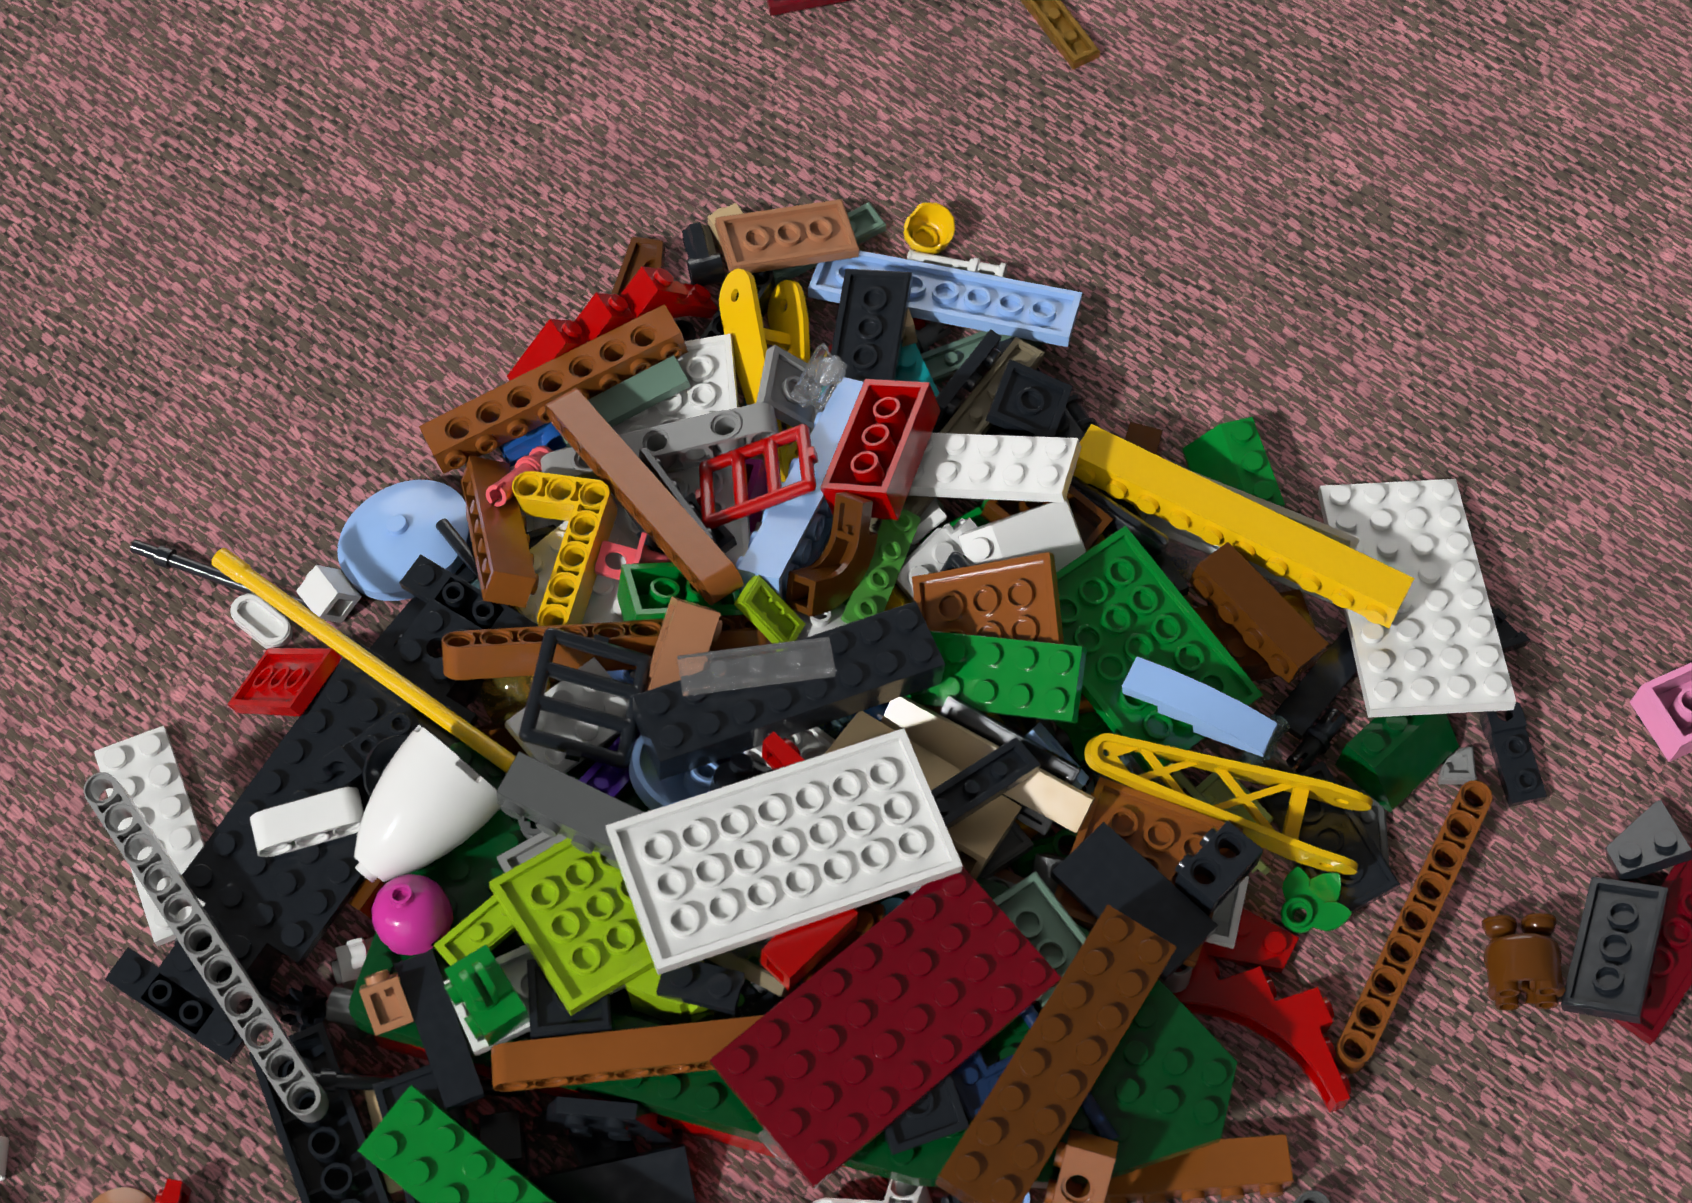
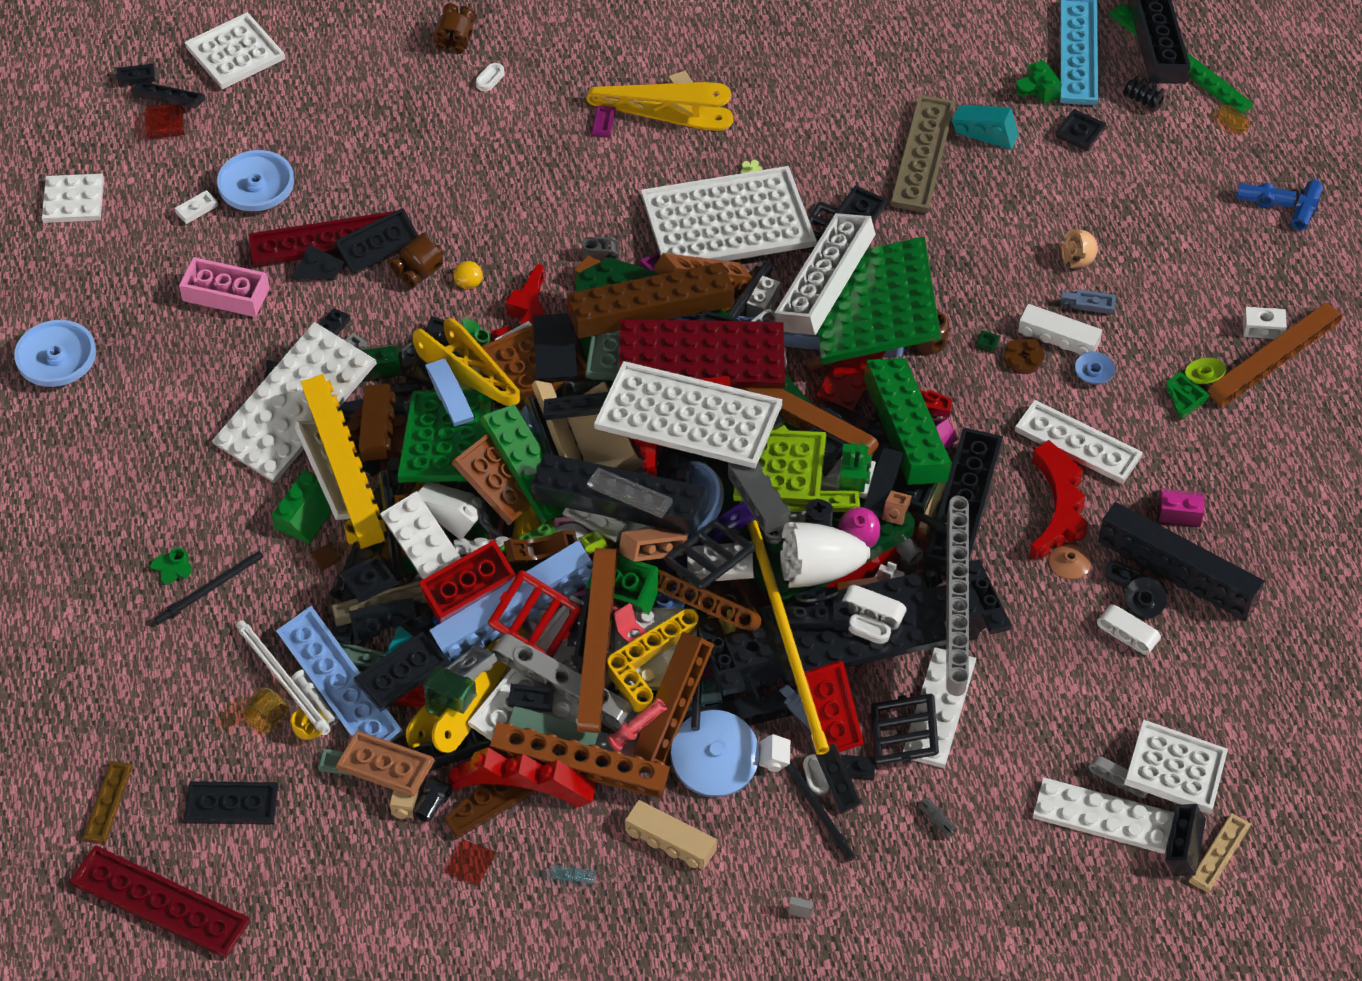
camera: 140 degrees left, 10 degrees down
(55, 673) = (937, 817): none -> dark grey pin
(151, 438) = (800, 907): none -> light grey tile
(151, 787) = (931, 733): none -> black bar
(219, 620) = (839, 779): none -> black plate
(220, 664) = (859, 766): none -> black plate
(292, 787) = (869, 628): none -> white tile
(377, 410) = (670, 835): none -> tan brick
(460, 294) = (572, 874): none -> clear light blue axle
(471, 865) = (819, 512): none -> black piece
(595, 232) = (470, 862): none -> clear red piece
(678, 402) = (531, 697): none -> black plate
(772, 319) = (448, 690): none -> clear green brick
(819, 379) = (453, 649): clear hips -> none
(923, 107) = (231, 802): none -> black tile
(995, 209) = (260, 707): none -> clear yellow piece
(1017, 255) = (319, 723): none -> white piece
(1222, 871) = (510, 331): black brick -> none
(1235, 252) = (175, 608): none -> black bar
(1299, 295) = (172, 568): none -> green plate
(1404, 938) = (439, 303): dark orange beam -> none
(1435, 1013) = (468, 275): none -> yellow hair

